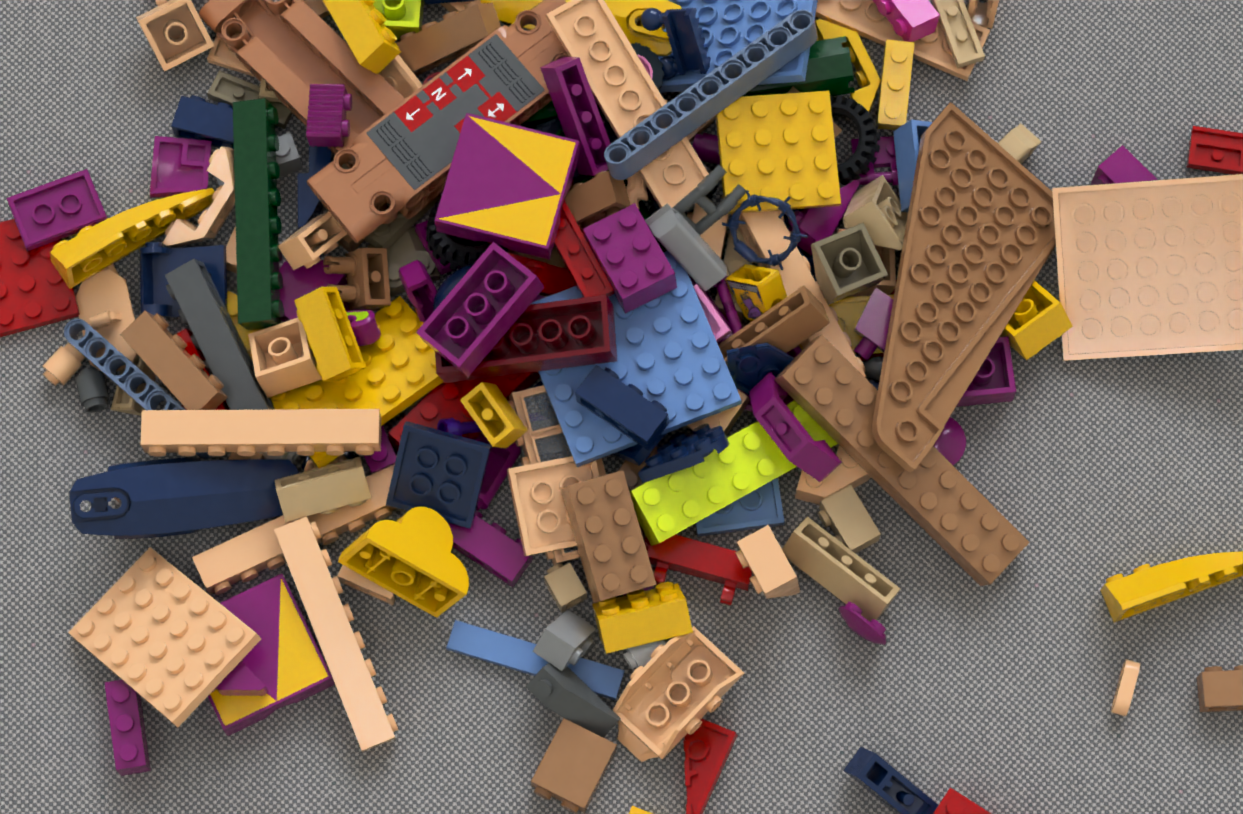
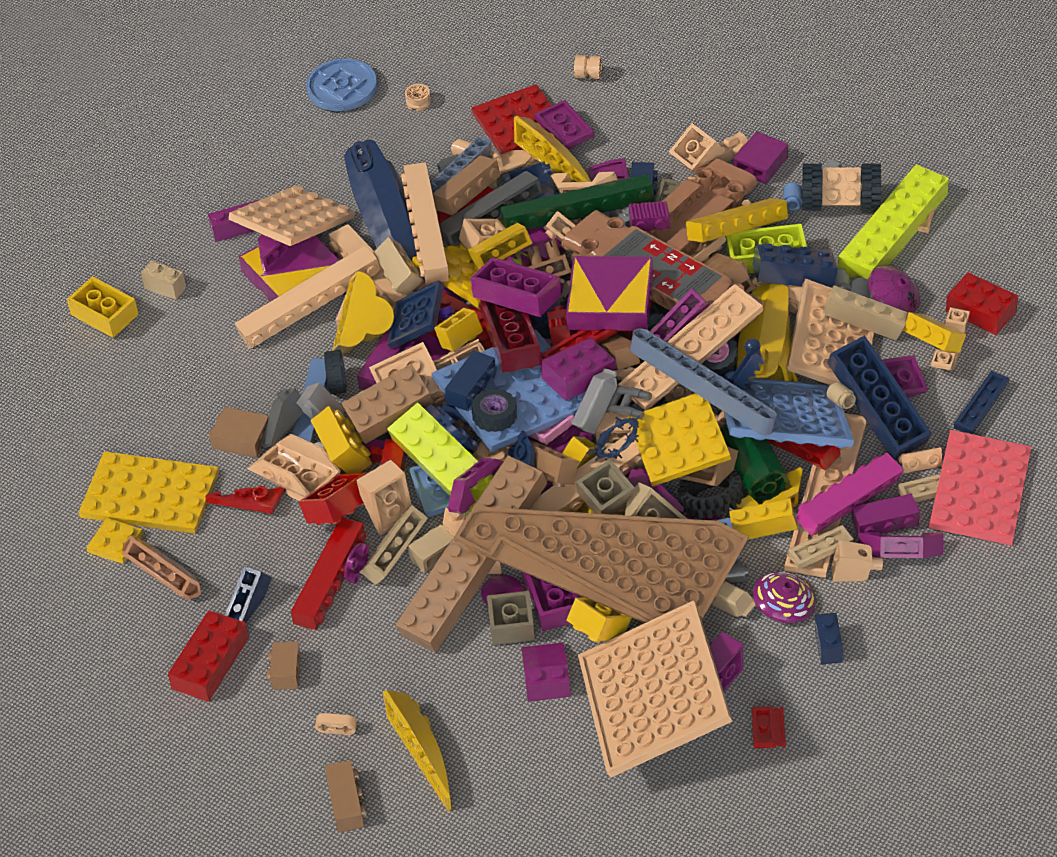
camera: 85 degrees right, 25 degrees down
(500, 611) = (335, 372): none -> black wheel
(698, 371) = (494, 410): none -> black wheel
(753, 635) = (332, 500): none -> red brick
(866, 667) = (327, 575): none -> red brick
(996, 433) = (510, 617): none -> dark tan brick
(1015, 100) = (784, 597): none -> magenta dish
(1016, 745) = (284, 665): none -> medium nougat brick
(1080, 404) = (546, 672): none -> magenta slope
(1096, 49) = (828, 638): none -> dark blue brick

